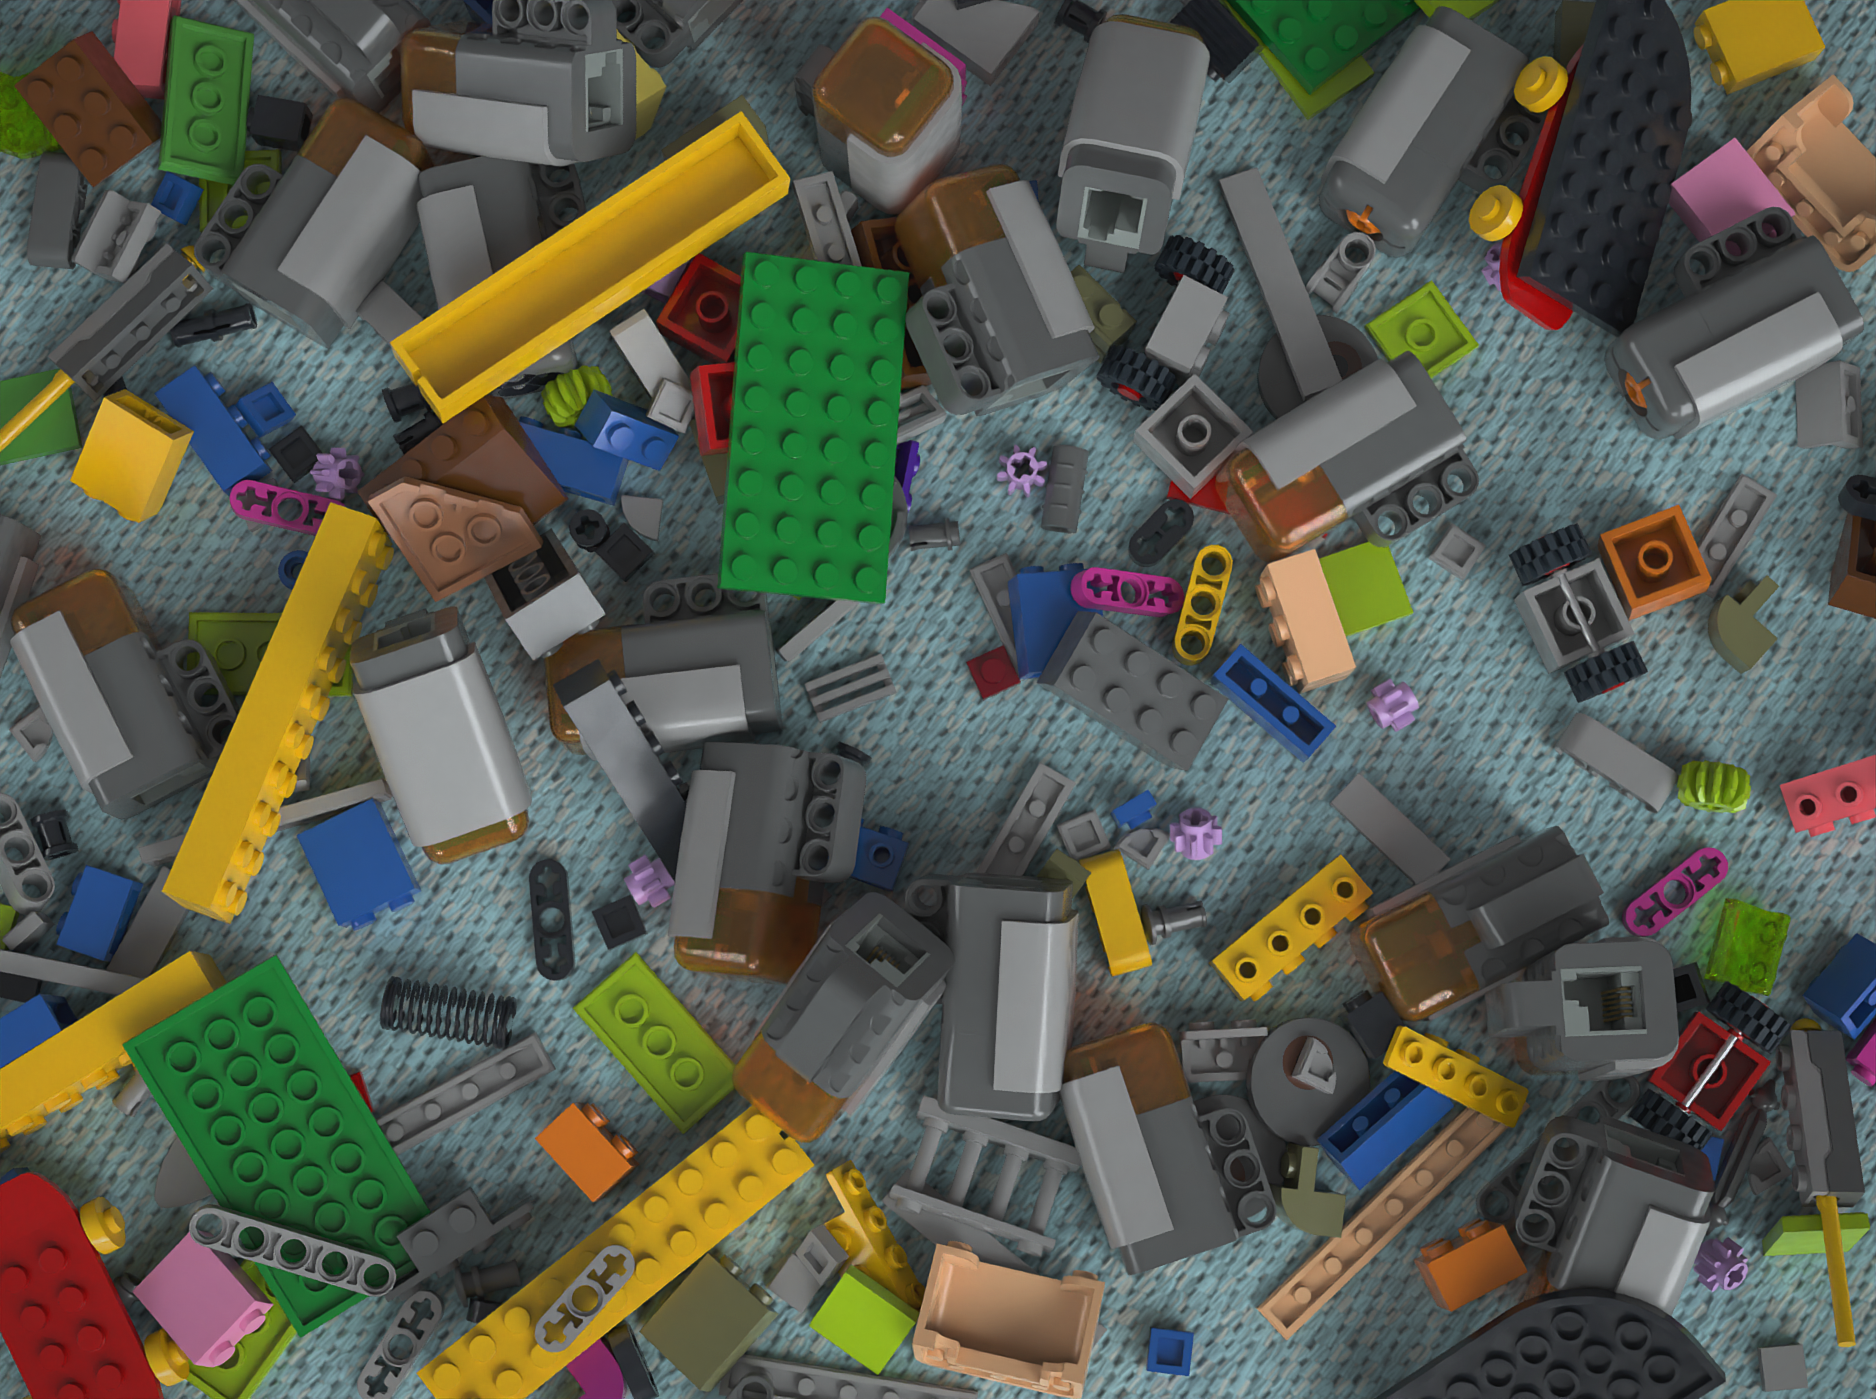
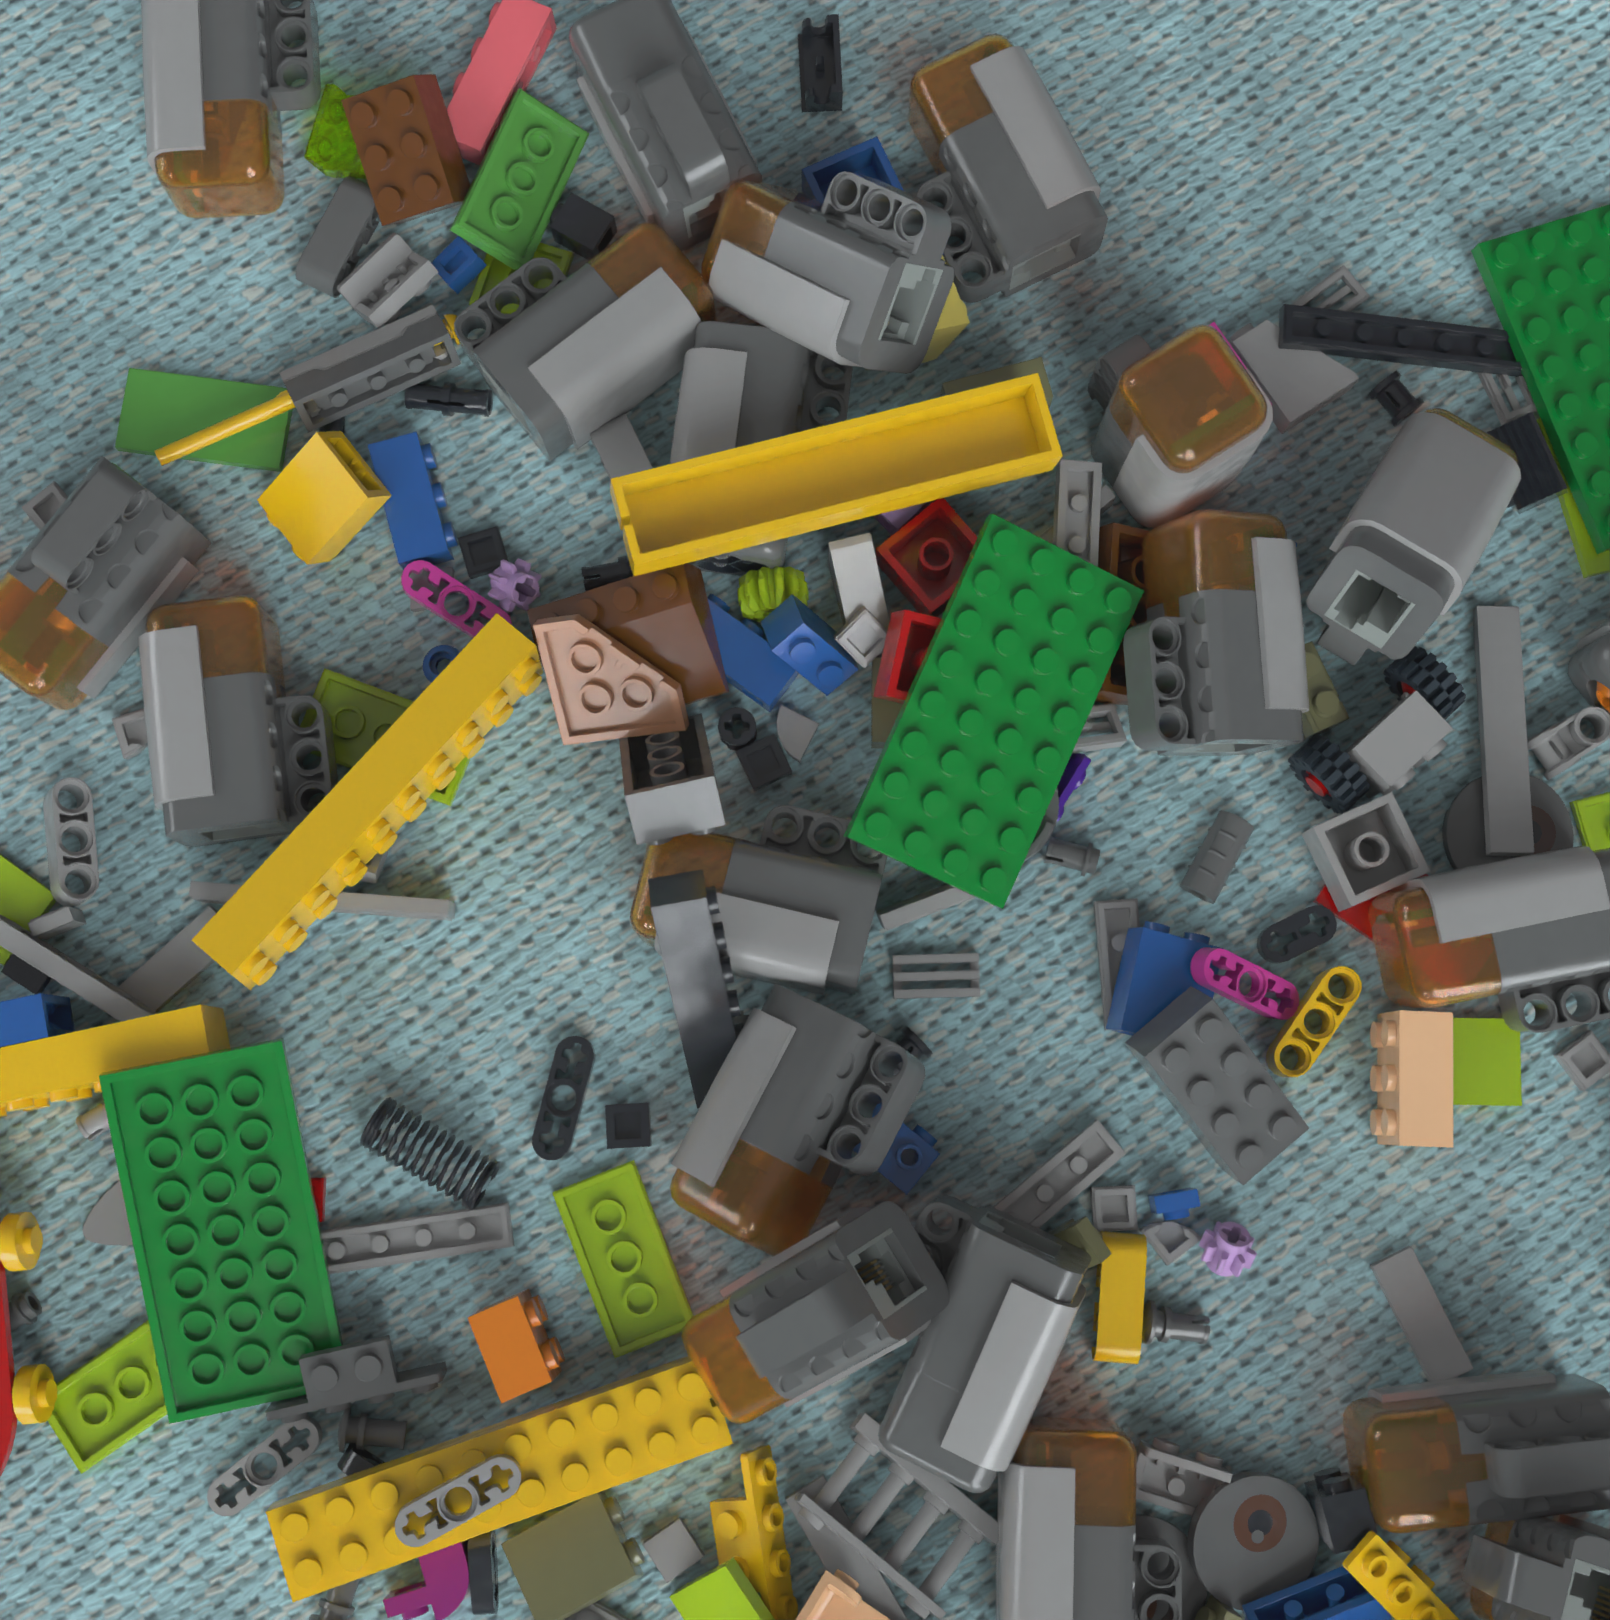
camera: 20 degrees right, 0 degrees up
(54, 834) = (117, 837): black bush -> none
(98, 913) = (130, 929): blue brick -> none
(203, 1301) = (90, 1349): bright pink brick -> none
(265, 410) = (468, 498): blue plate -> none
(277, 1234) = (183, 1316): light grey beam -> none
(359, 865) = (397, 975): blue brick -> none
(404, 401) = (604, 538): black bush -> none
(440, 735) = (519, 882): light grey piece -> none
(649, 881) = (671, 1096): lavender gear -> none
(821, 1254) = (708, 1533): light grey tile -> none
(993, 672) = (1082, 1012): dark red plate -> none
(1025, 481) = (1193, 826): lavender gear -> none
(1272, 703) = (1351, 1148): blue brick -> none
(1291, 928) = (1289, 1380): yellow brick -> none
(1315, 1066) = (1266, 1531): light grey tile -> none
(1392, 705) = (1470, 1192): lavender gear -> none

